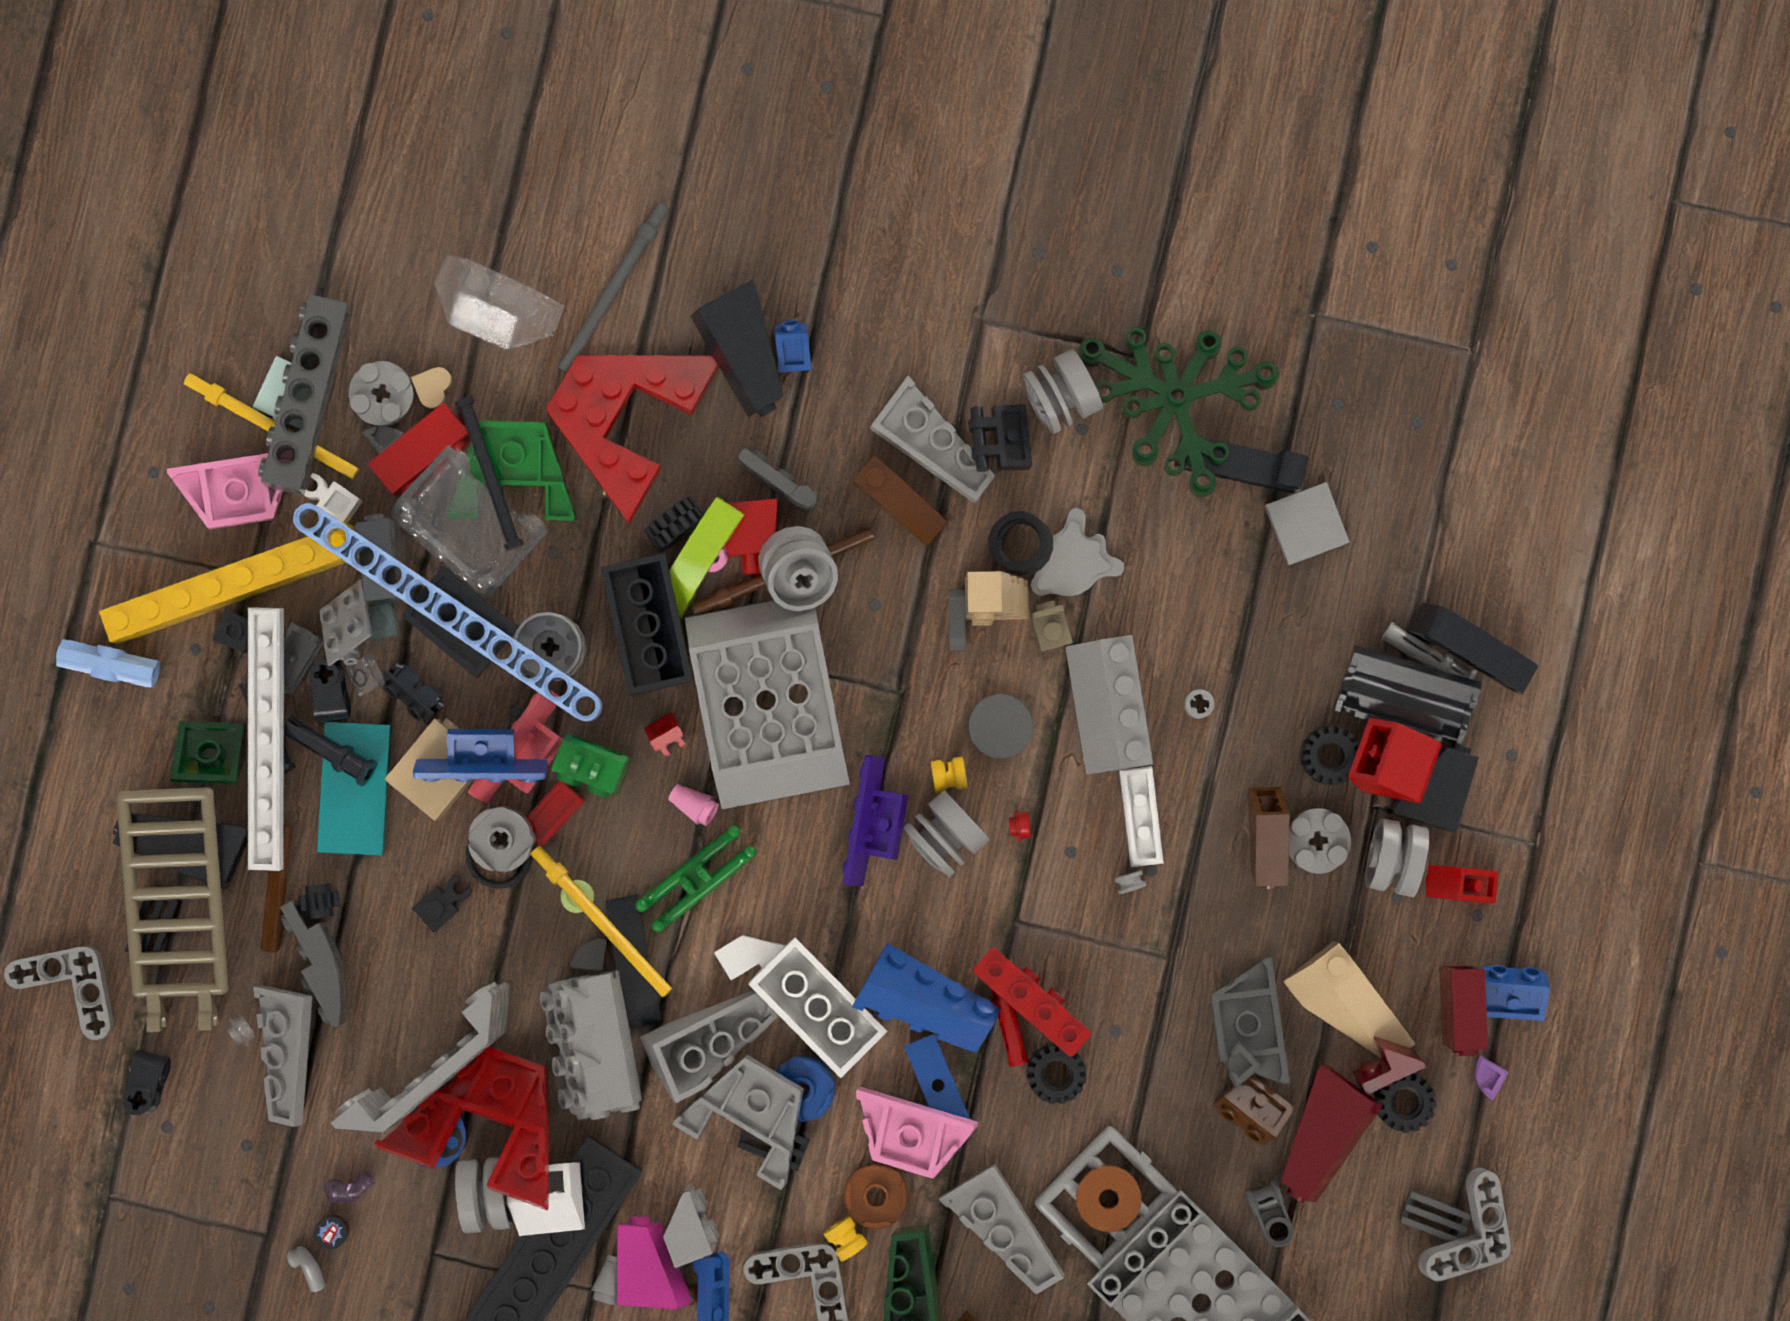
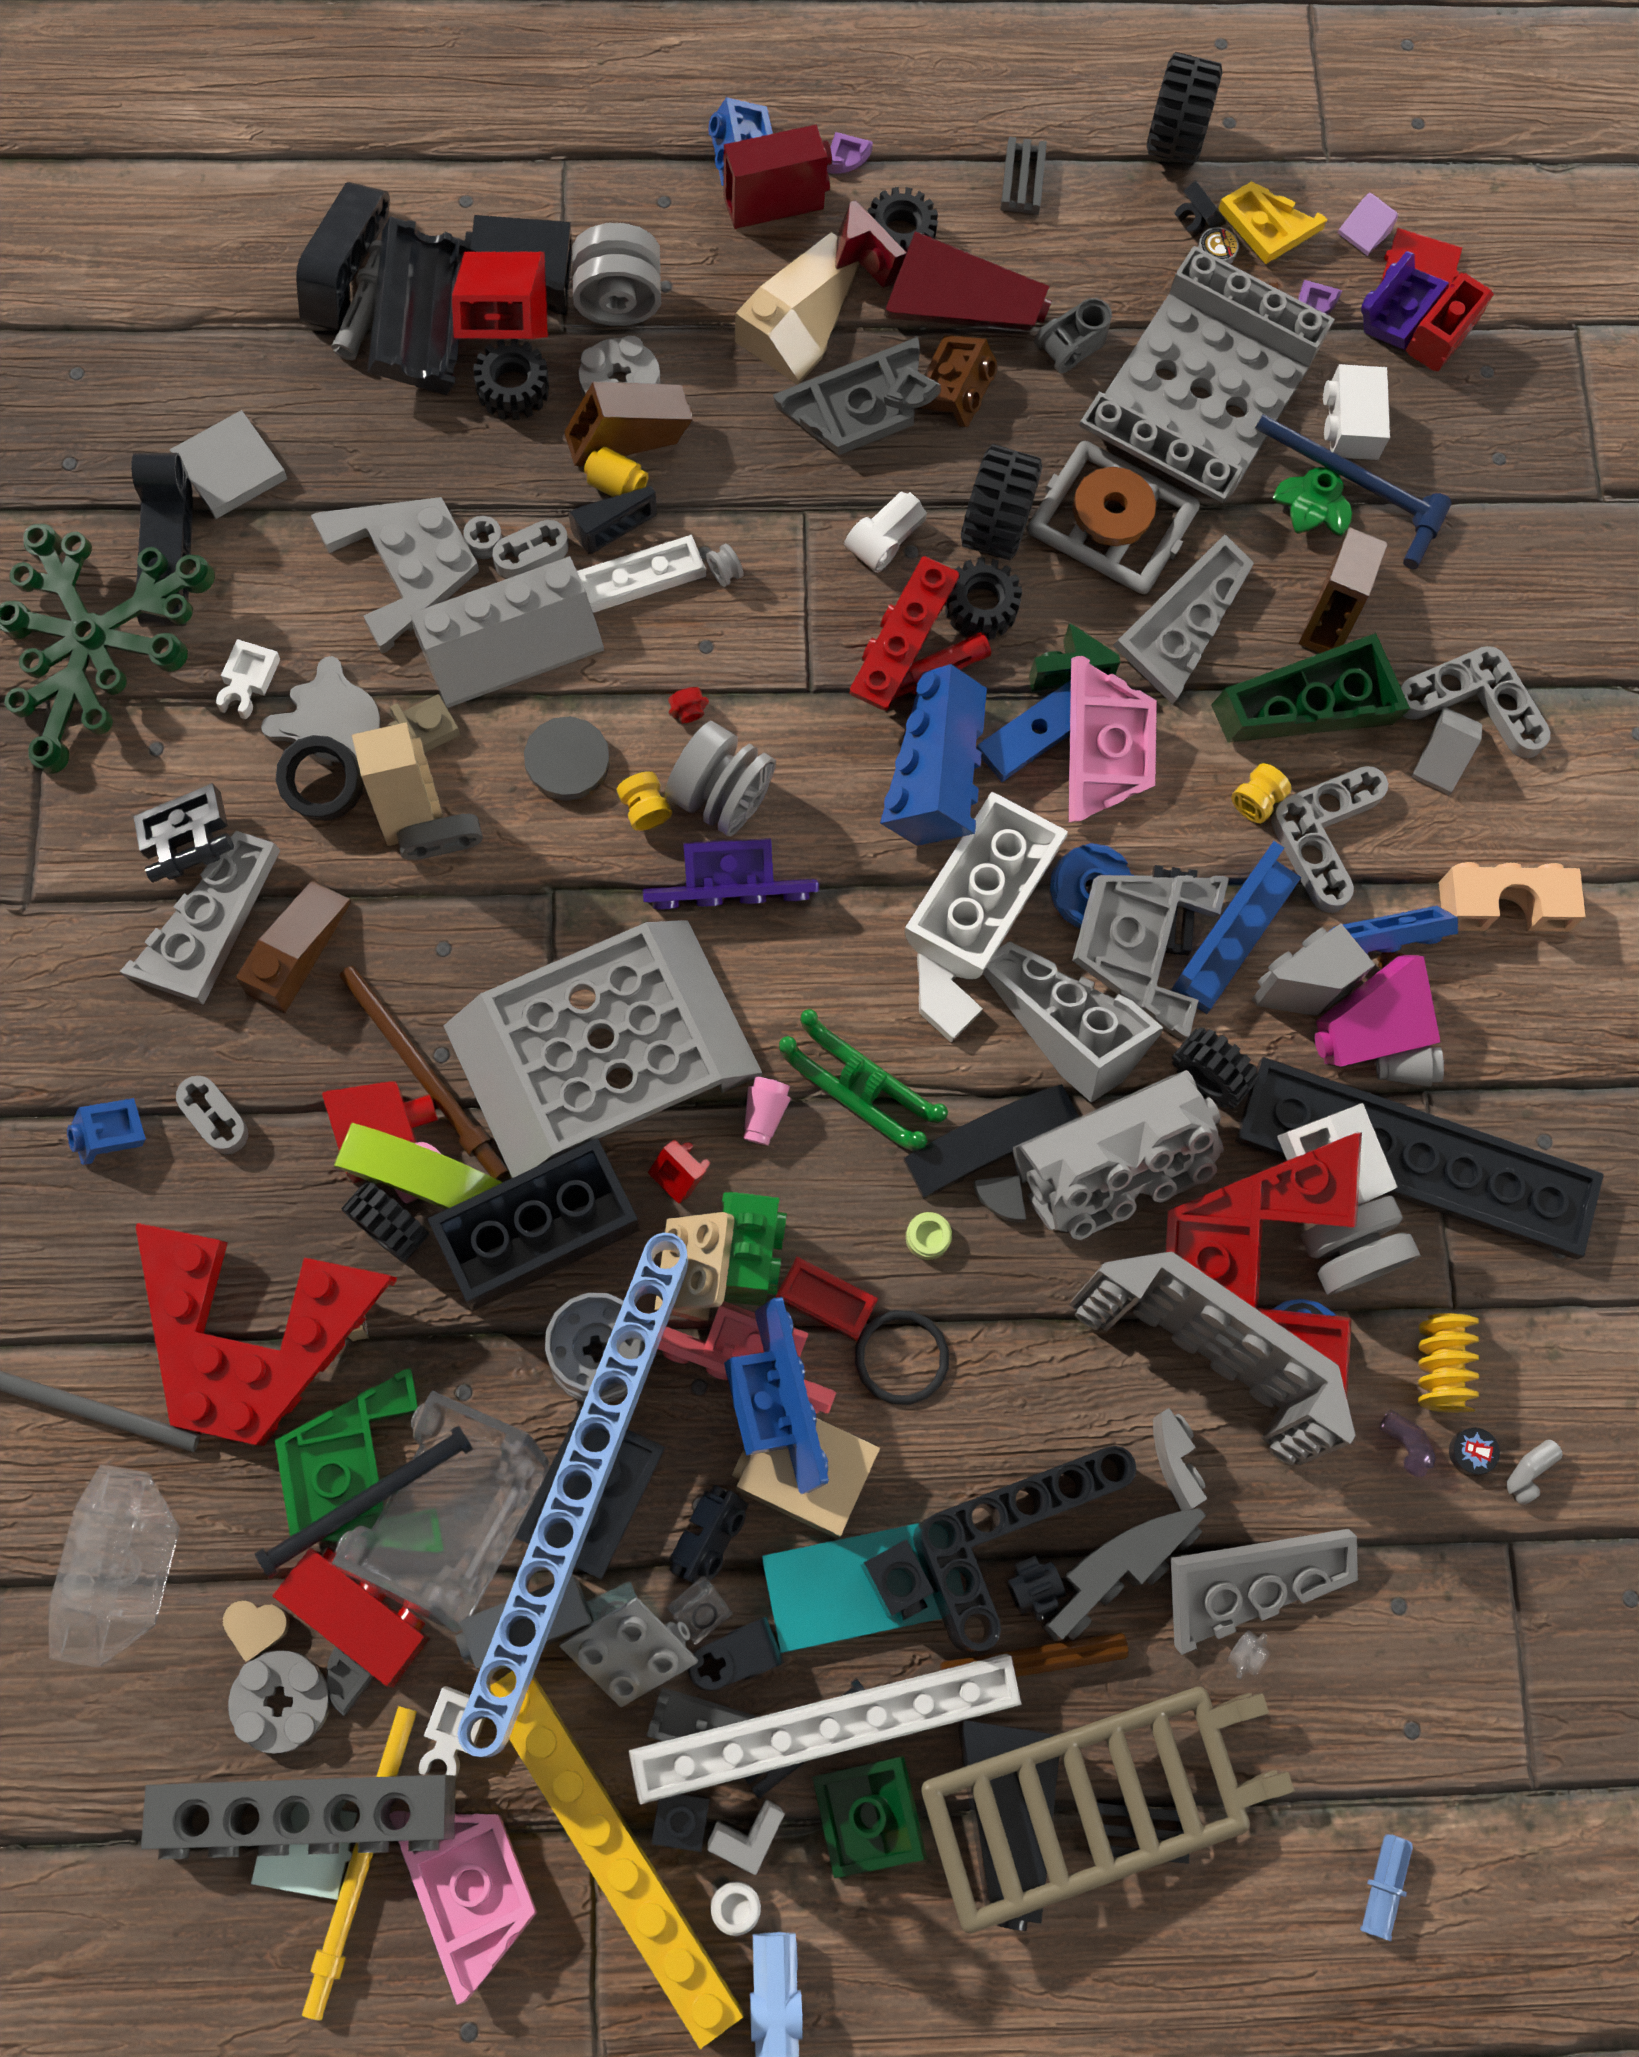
camera: 115 degrees left, 15 degrees down
(71, 970) = (1241, 1942): light grey beam -> none
(75, 1075) = (1387, 1886): none -> medium blue axle
(146, 1077) = (1356, 1775): black piece -> none
(179, 654) = (735, 1908): none -> white tile
(203, 668) = (747, 1850): none -> light grey fence
(342, 757) = (825, 1608): black pin -> none
(360, 809) = (904, 1559): none -> black brick
(364, 893) = (1005, 1519): none -> black beam
(385, 1022) = (1172, 1442): none -> light grey slope
(393, 1233) = (1447, 1362): none -> yellow piece
(439, 906) = (995, 1421): black plate -> none
(482, 838) = (905, 1346): light grey plate -> none
(559, 875) = (907, 1262): yellow bar -> none
(592, 737) = (708, 1251): none -> tan bracket
(639, 1133) = (1216, 1067): none -> black tyre
(741, 347) = (118, 1193): black slope -> none
(744, 1186) = (1237, 930): none -> blue fence
(779, 481) = (297, 1106): dark grey hinge -> none
(783, 413) = (220, 1108): none -> light grey beam
(798, 568) = (411, 1039): light grey wheel -> none
(879, 1176) = (1191, 796): dark orange tile -> none
(985, 1136) = (1054, 667): none -> dark green slope
(1062, 391) = (104, 764): light grey wheel -> none
(1123, 508) = (247, 672): none -> white plate
(1123, 1107) = (1001, 502): none -> black tyre
(1127, 1008) = (879, 538): none -> white piece
(1187, 799) = (611, 518): none -> black slope
(1188, 737) = (530, 549): none -> light grey beam
(1197, 653) = (418, 549): none -> light grey wing
(1226, 816) = (614, 473): none -> yellow brick
(1461, 884) = (631, 206): red slope -> none
(1480, 1241) = (1027, 114): light grey beam -> none

